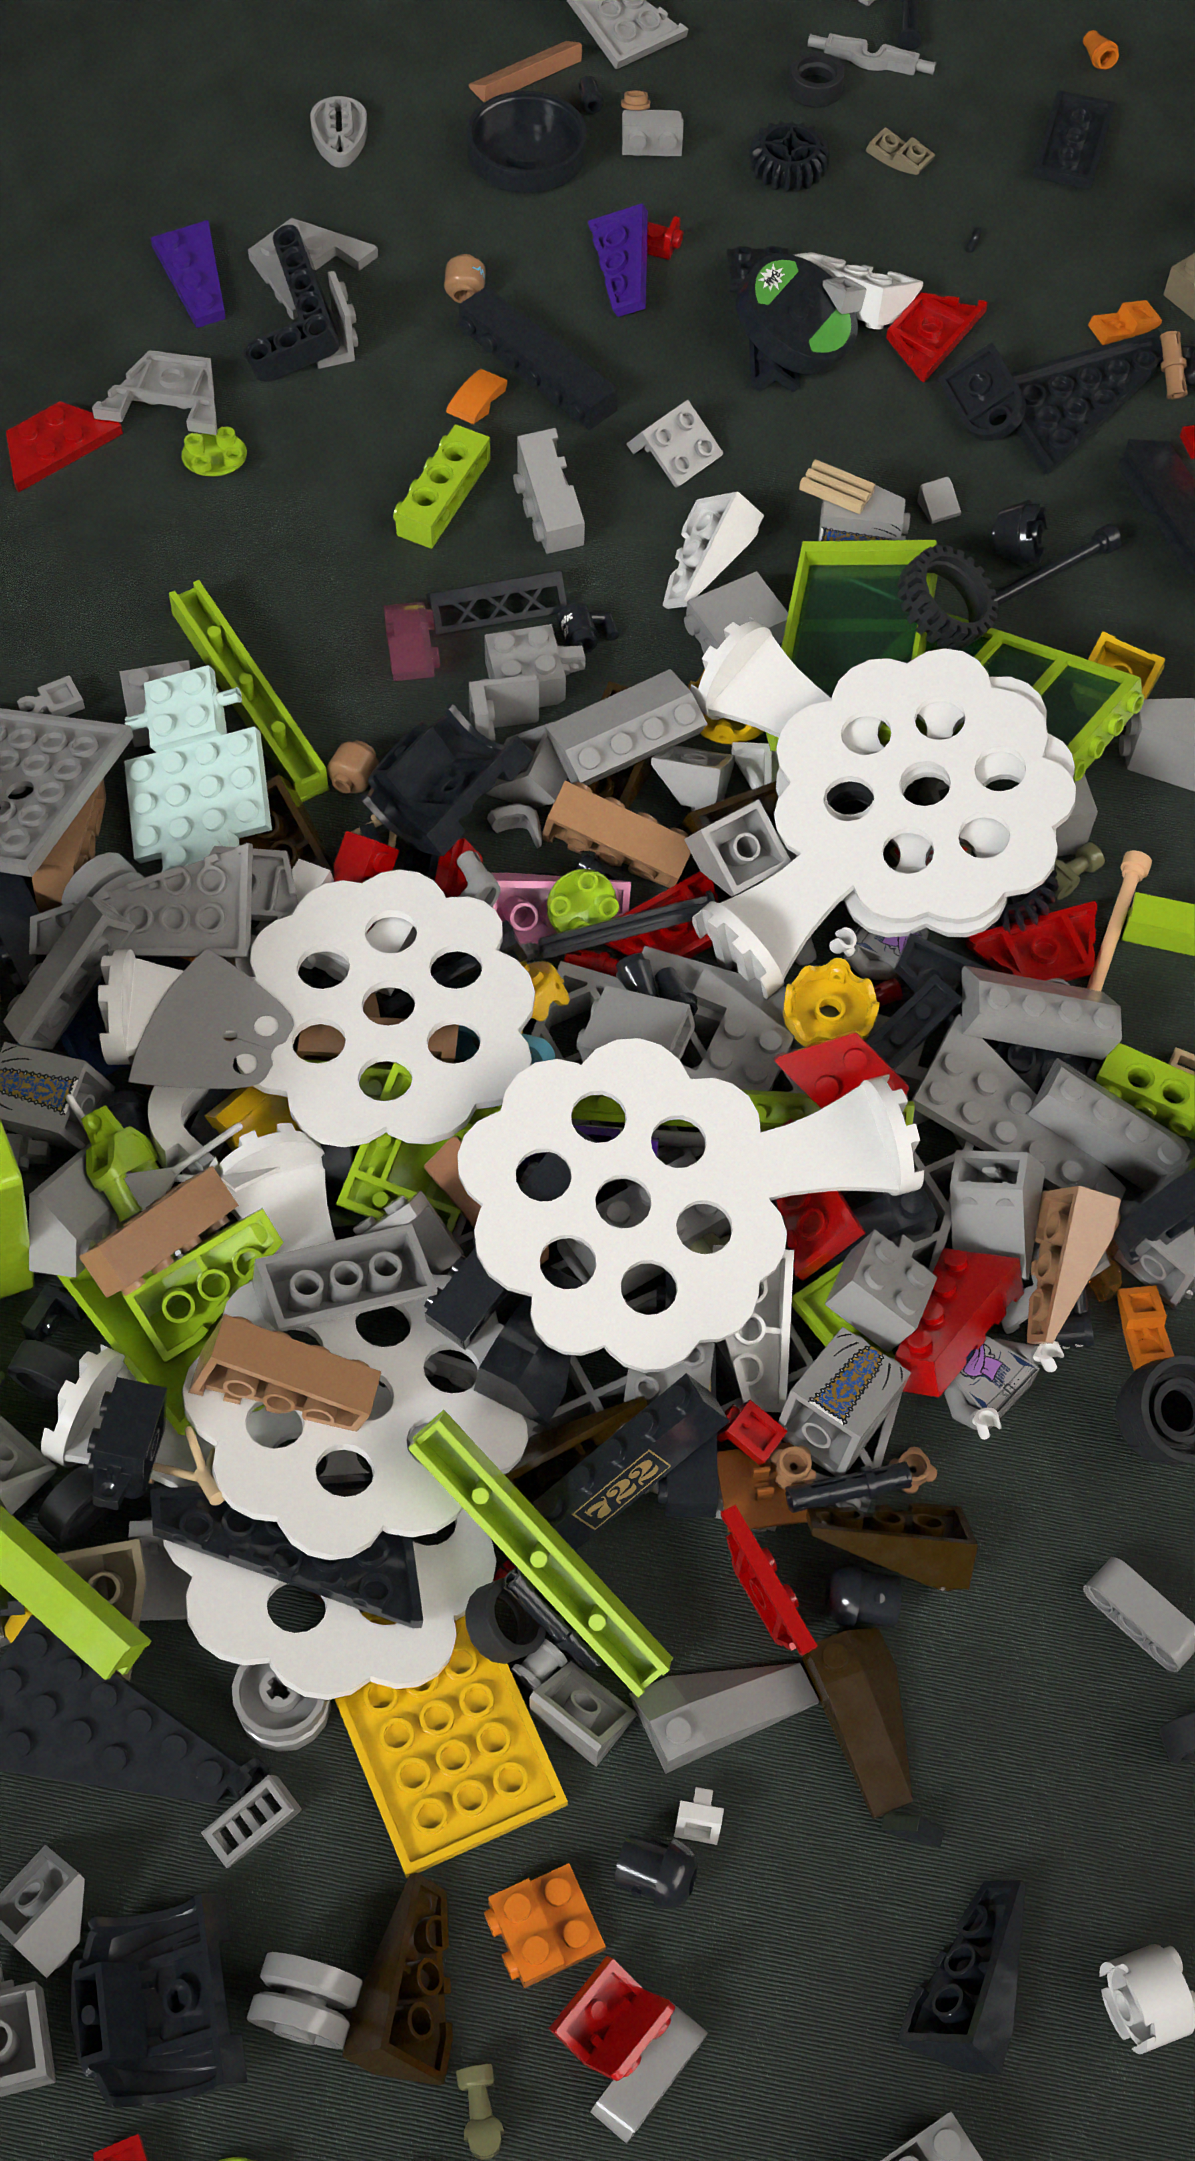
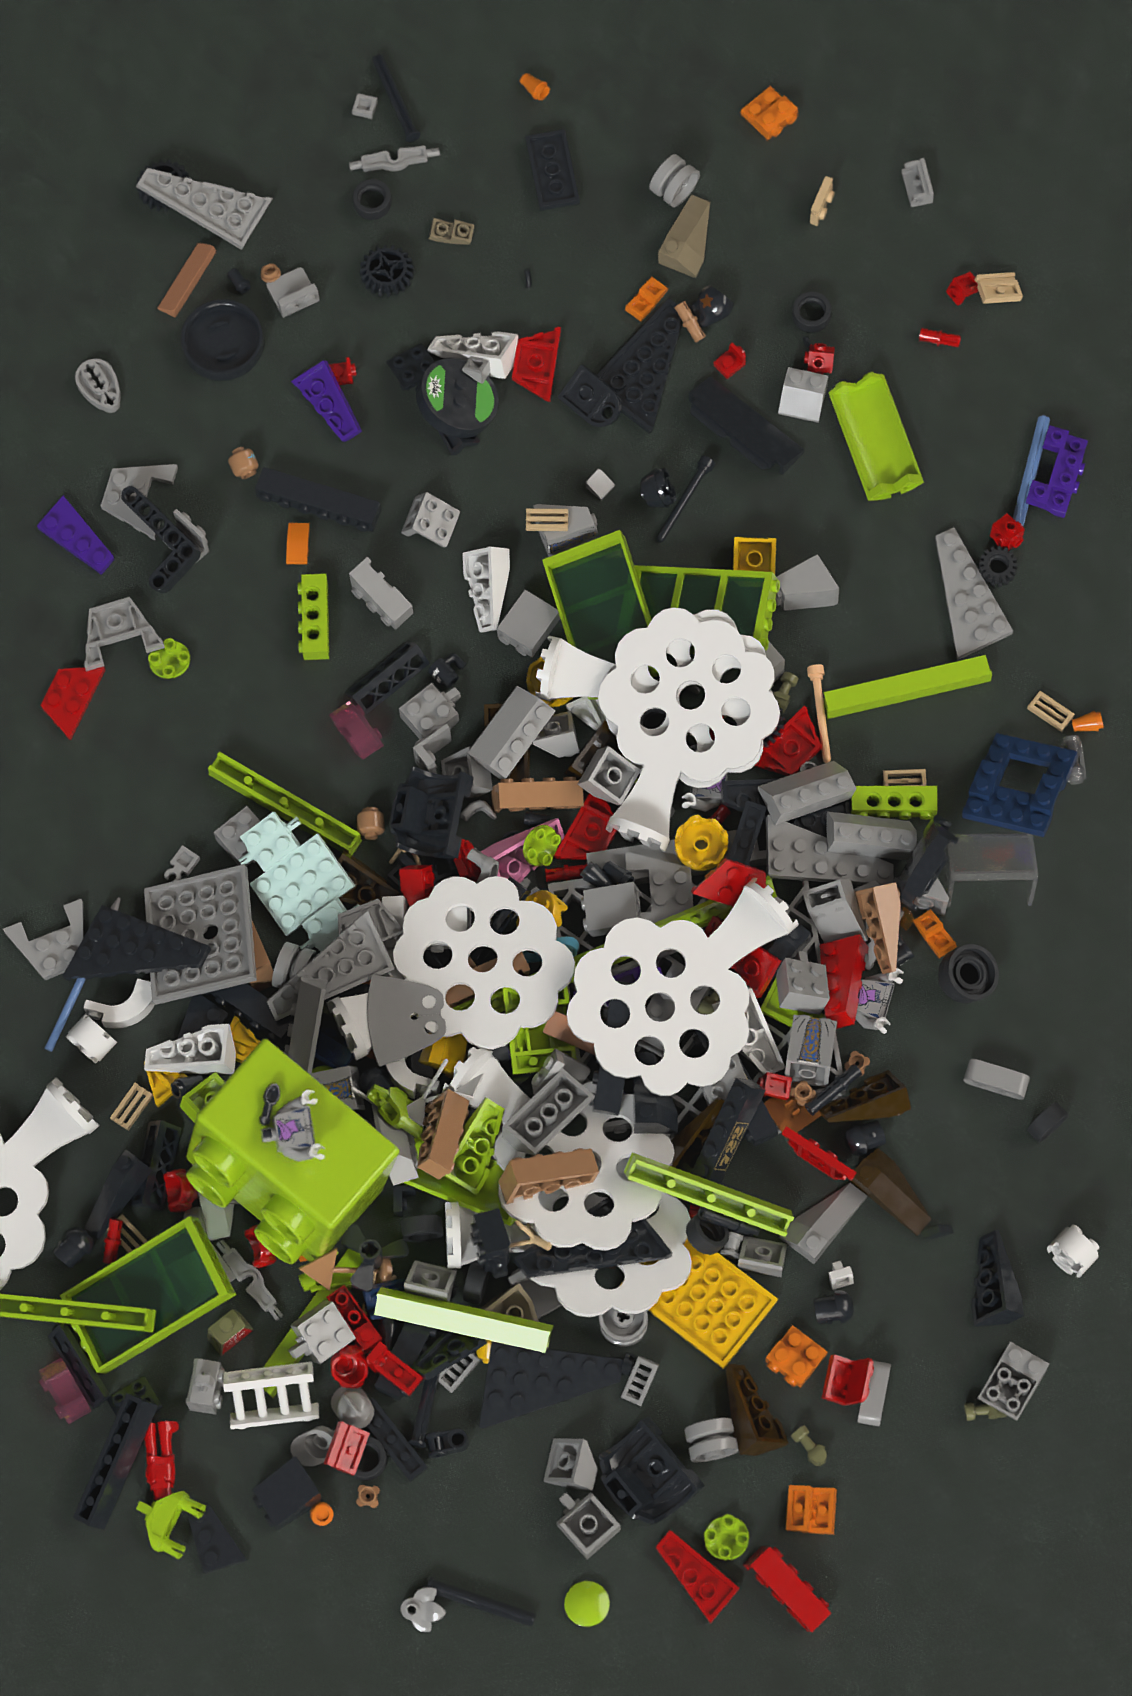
camera: 20 degrees left, 10 degrees up
(622, 927) = (571, 845): black axle -> none
(929, 615) = (634, 582): black tyre -> none

